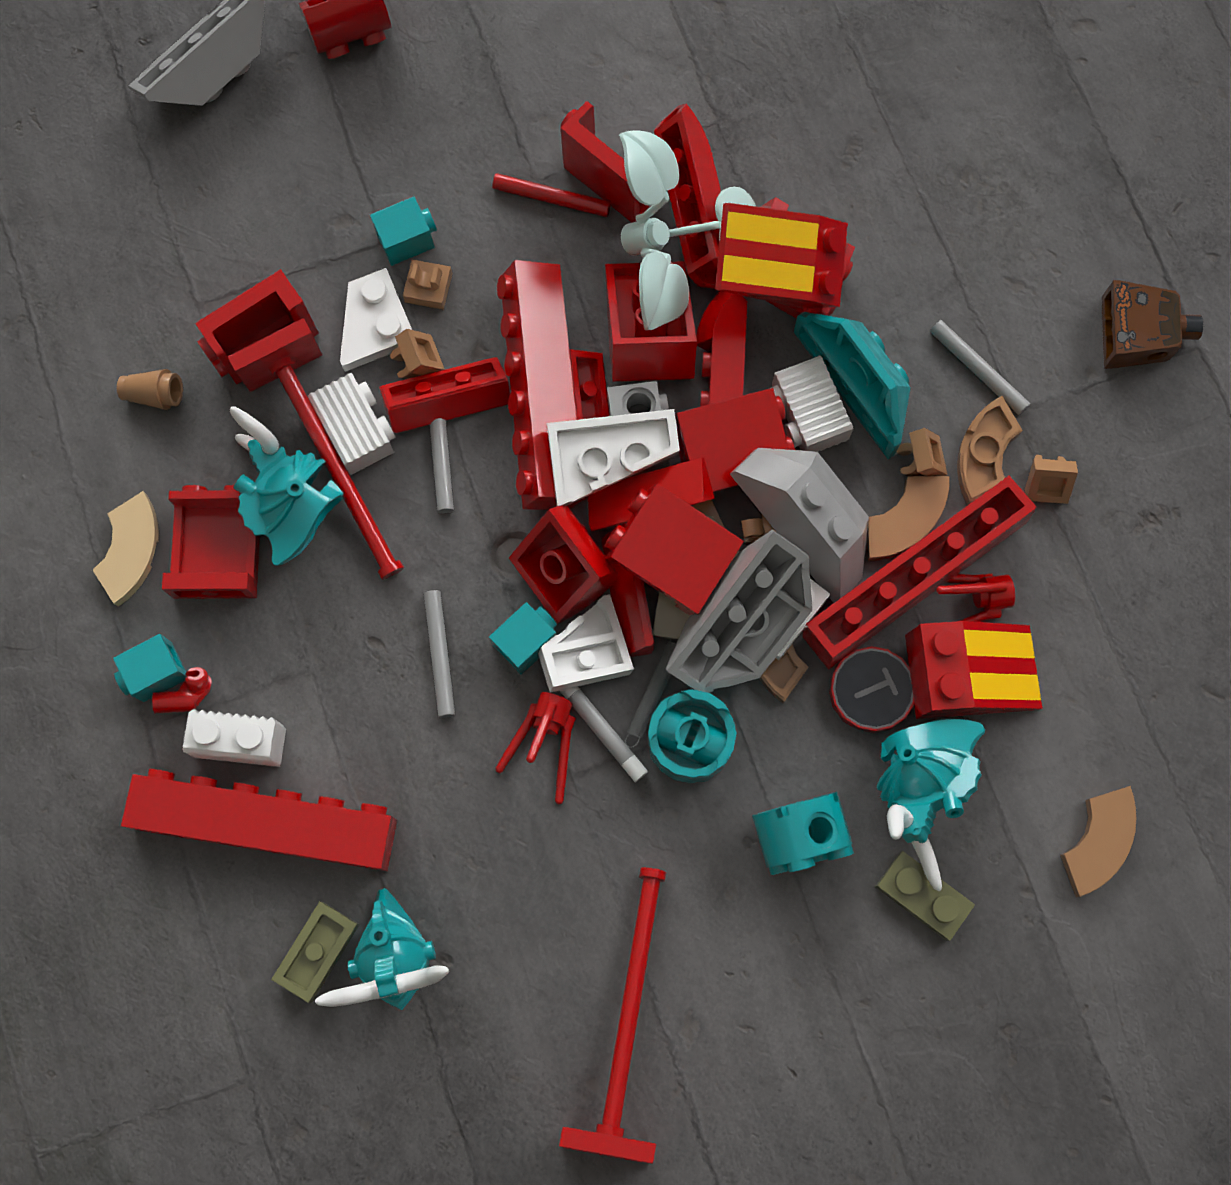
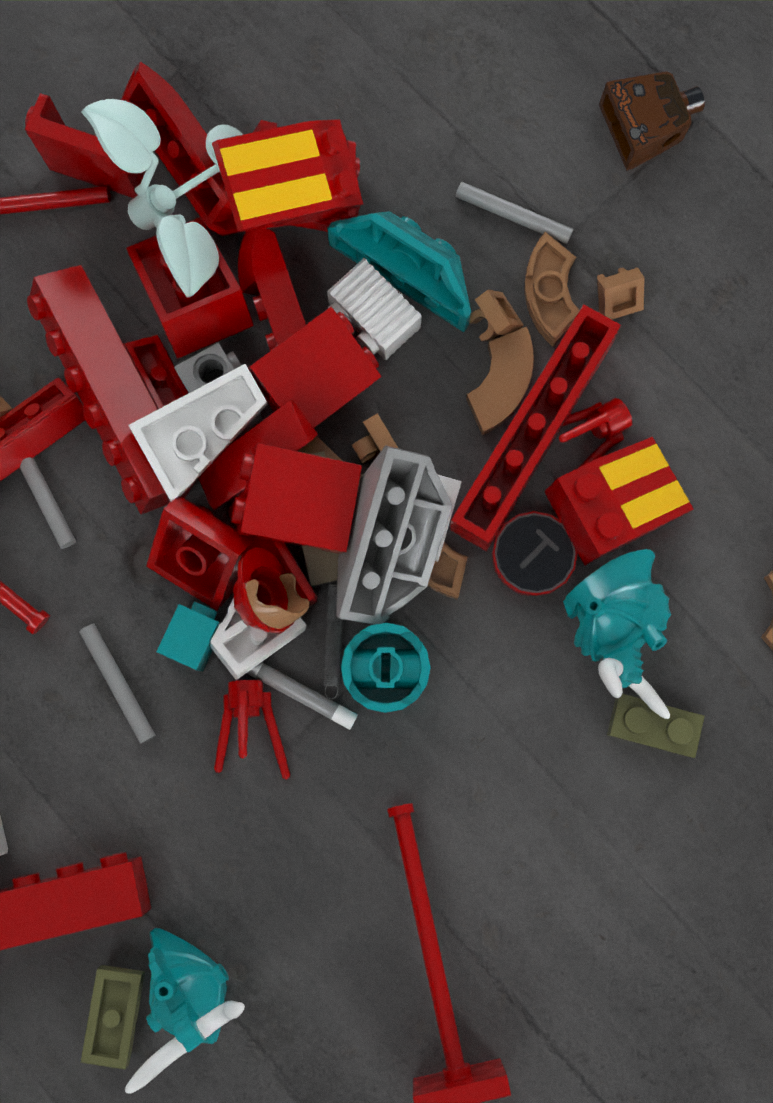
camera: 25 degrees left, 5 degrees up
(609, 622) = (266, 593): none -> red piece
(803, 834) = (525, 717): teal brick -> none
(809, 510) = (411, 412): light grey wedge -> none

